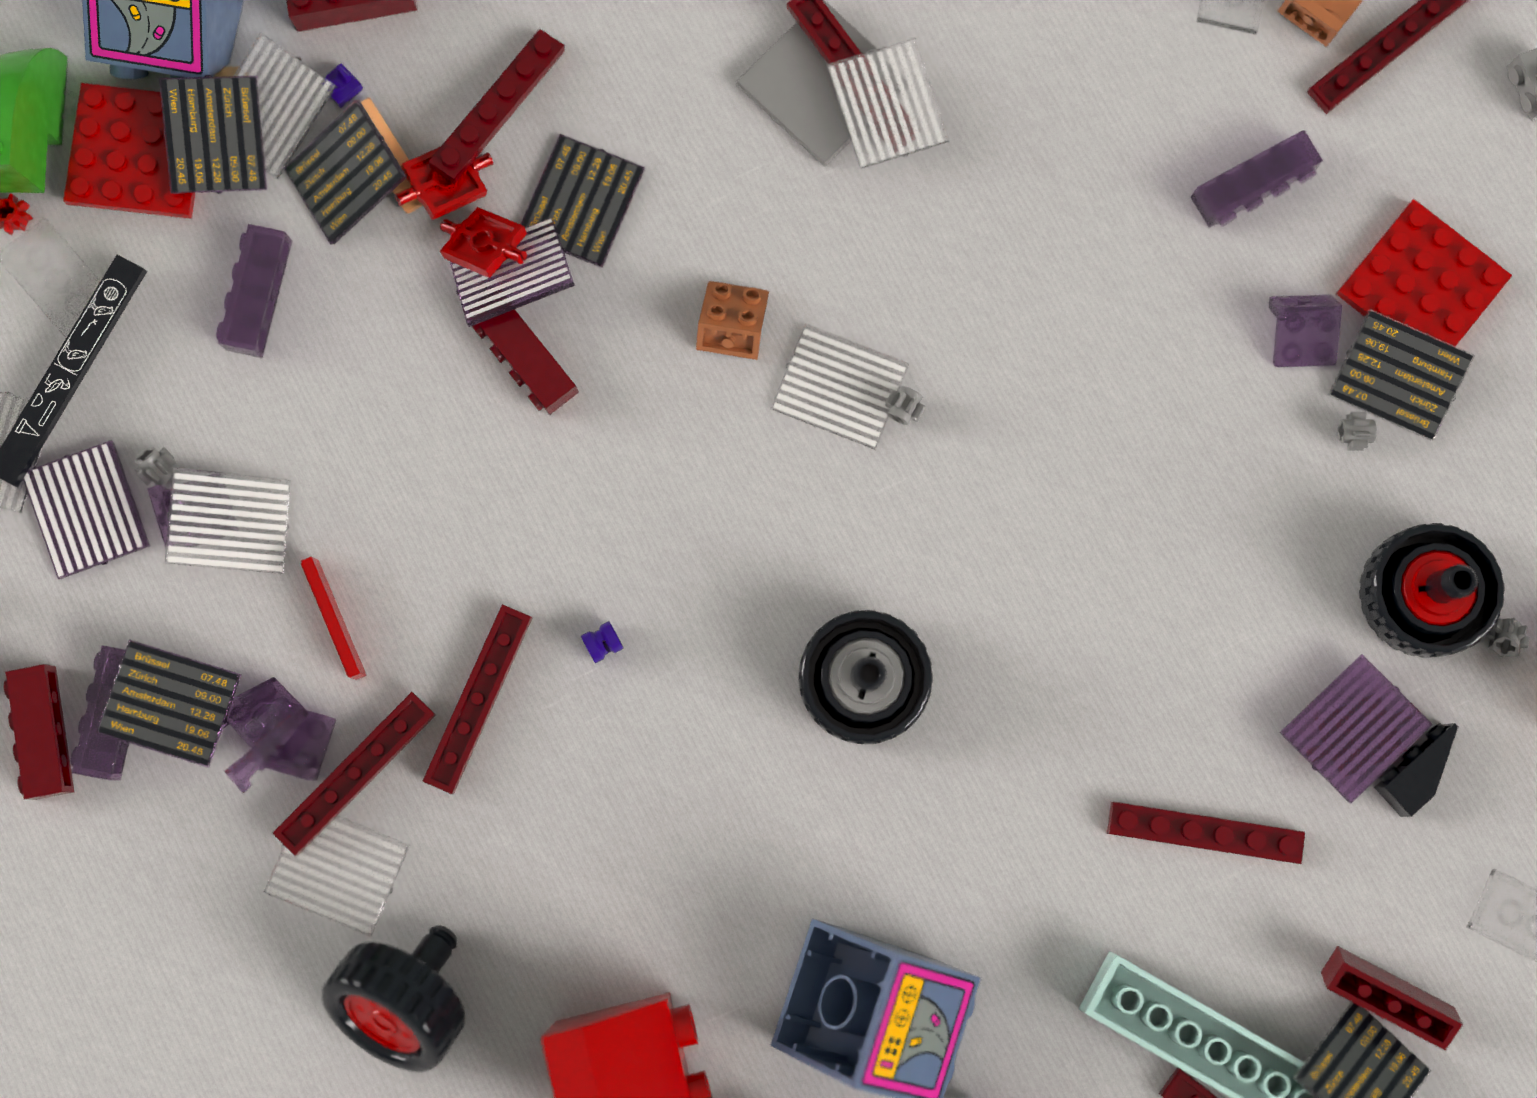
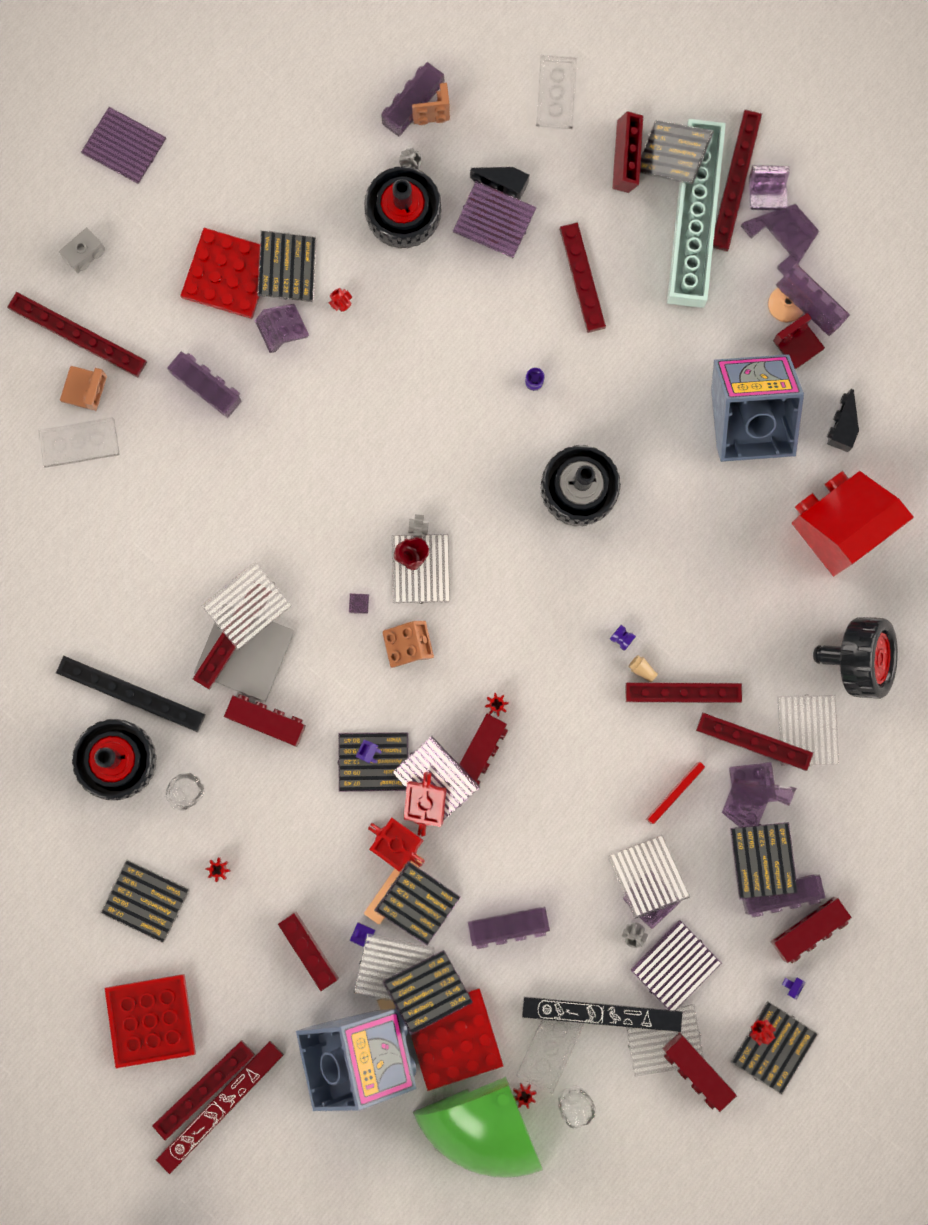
camera: 115 degrees left, 0 degrees up
(496, 106) = (339, 833): dark red plate -> none
(543, 651) = (642, 668): none -> tan cone
(579, 402) = (493, 709): none -> red gear
(597, 192) = (367, 751): none -> dark purple tile
(707, 69) = (265, 721): none -> dark red brick
(824, 273) = (359, 603): none -> clear purple tile
(866, 374) = (411, 553): none -> dark red hair
(1072, 679) = (534, 375): none -> dark purple wheel
(1313, 433) = (340, 299): none -> red gear
(1357, 431) = (329, 277): light grey gear -> none

